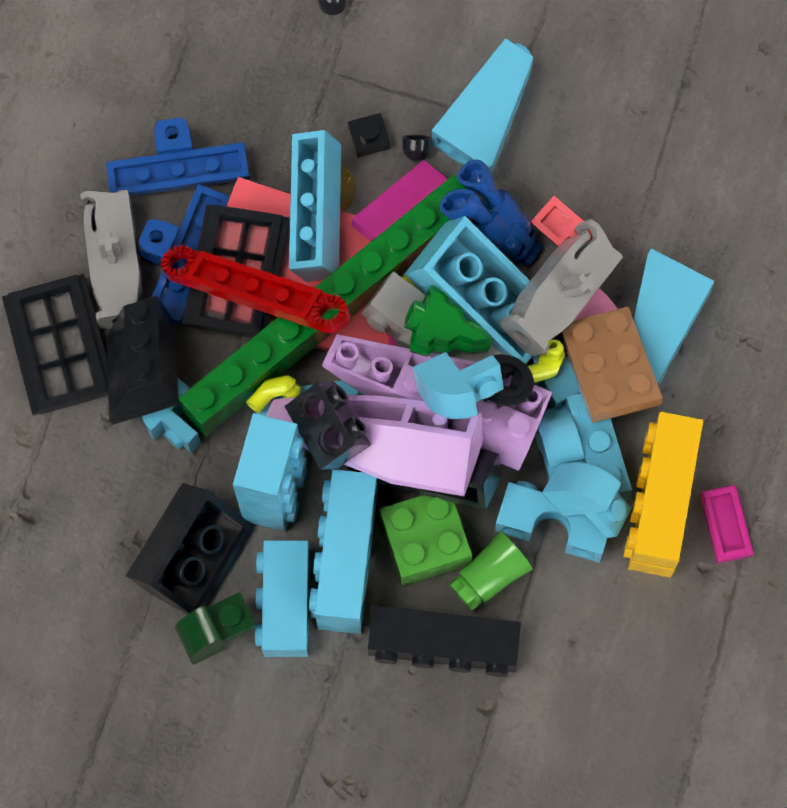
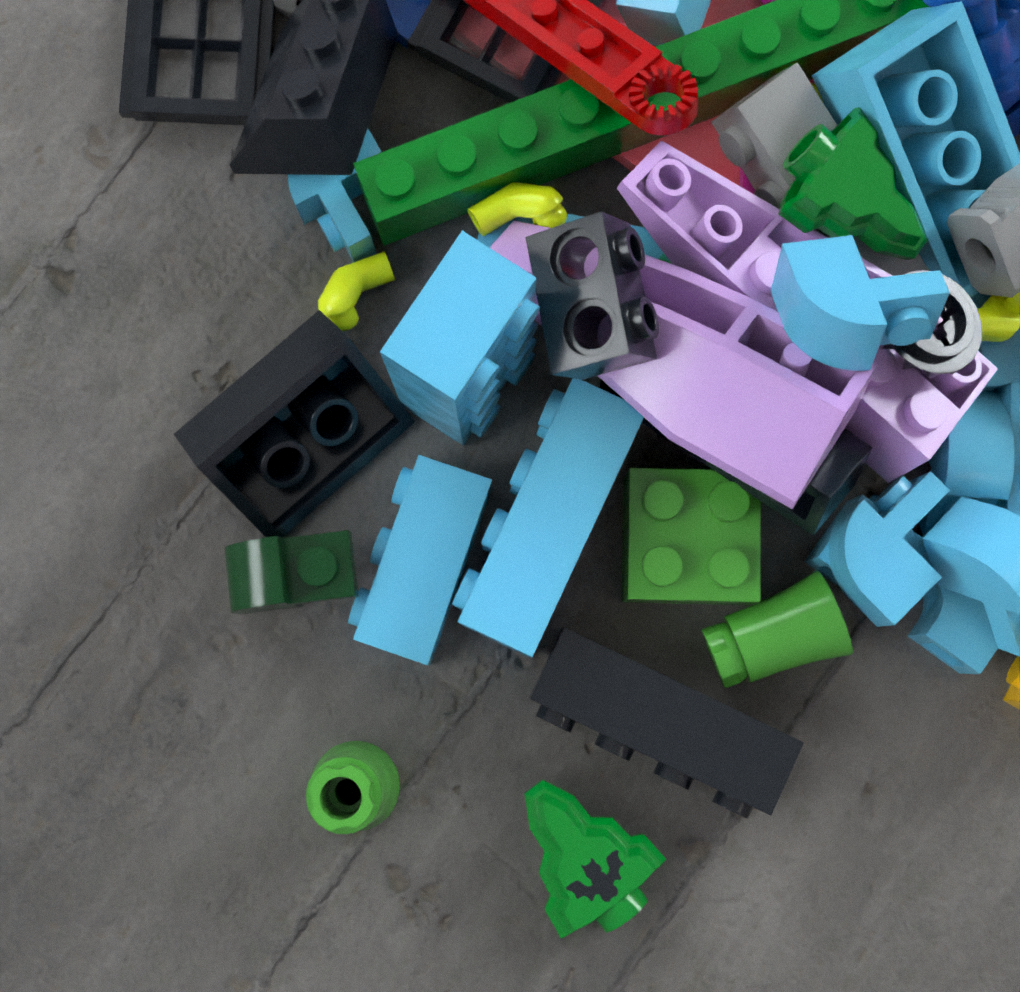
camera: 15 degrees right, 10 degrees up
(192, 462) = (348, 283): none -> neon yellow arm
(290, 747) = (370, 770): none -> bright green plant
(428, 728) = (587, 862): none -> green rock
(521, 511) = (873, 558): none -> medium azure brick

